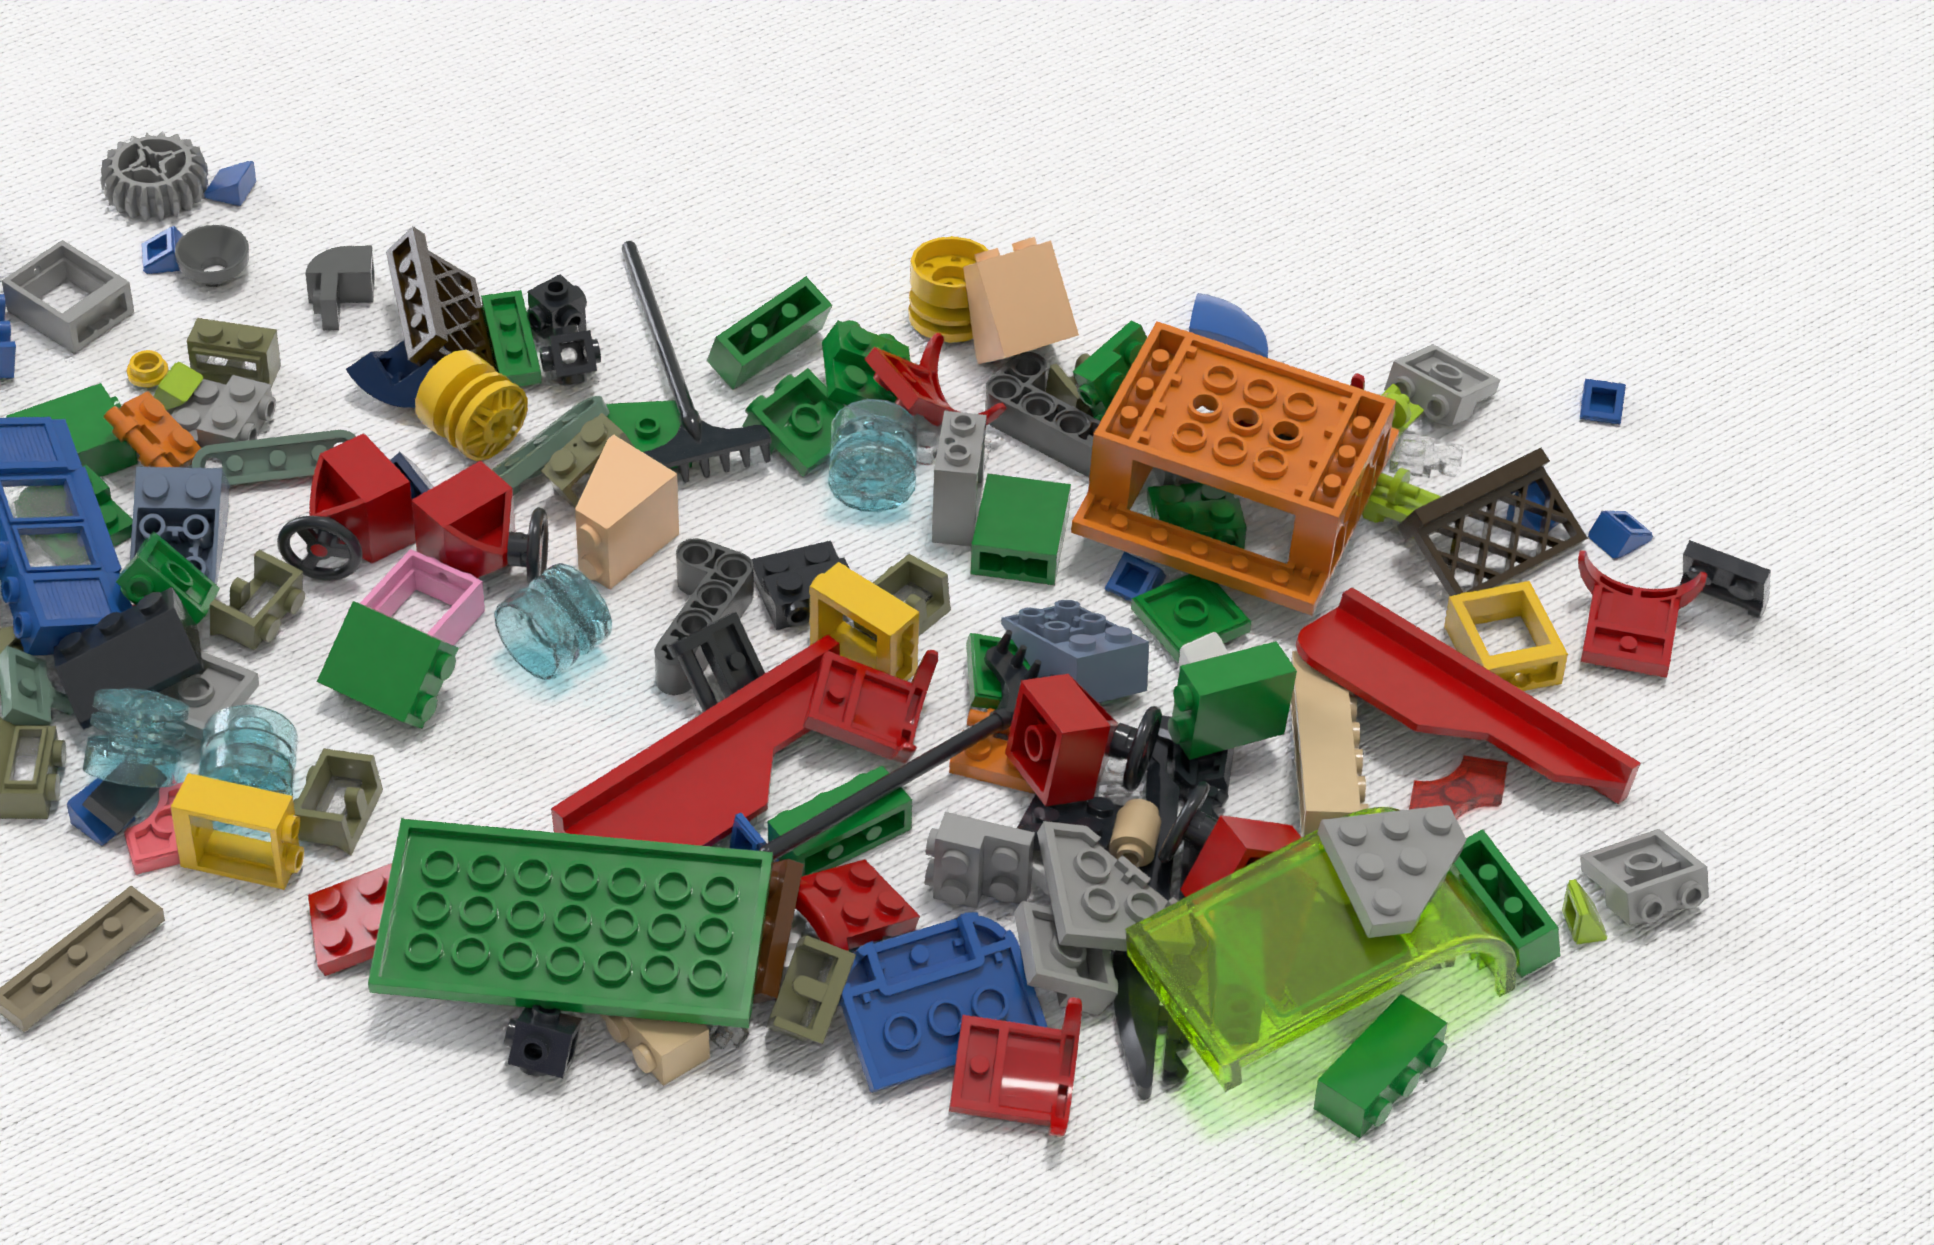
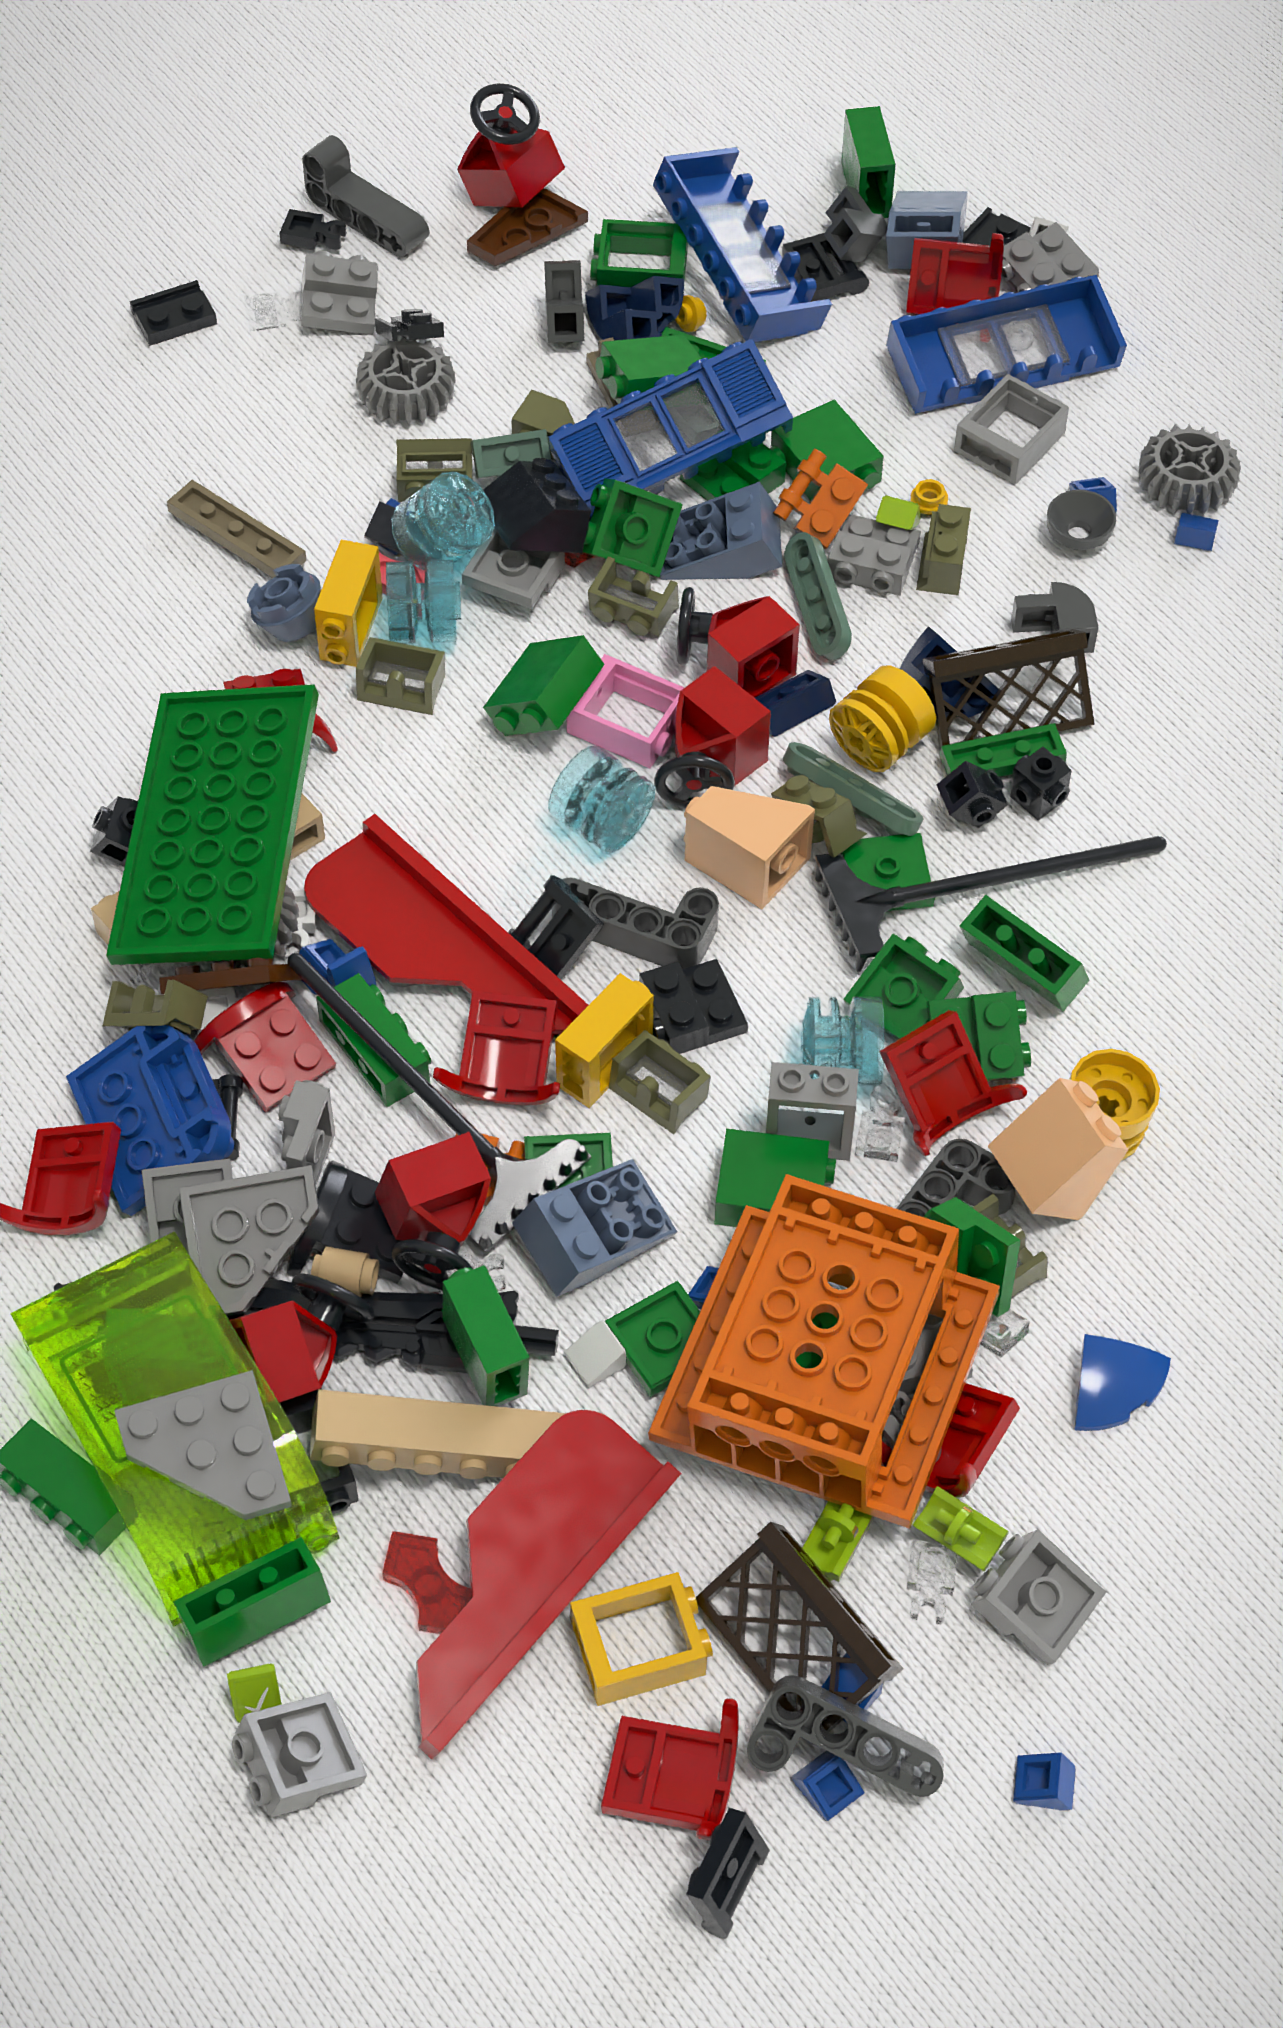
camera: 90 degrees right, 10 degrees up
(221, 888) = (286, 603): none -> sand blue cone
(1580, 511) = (847, 1745): none -> dark grey beam

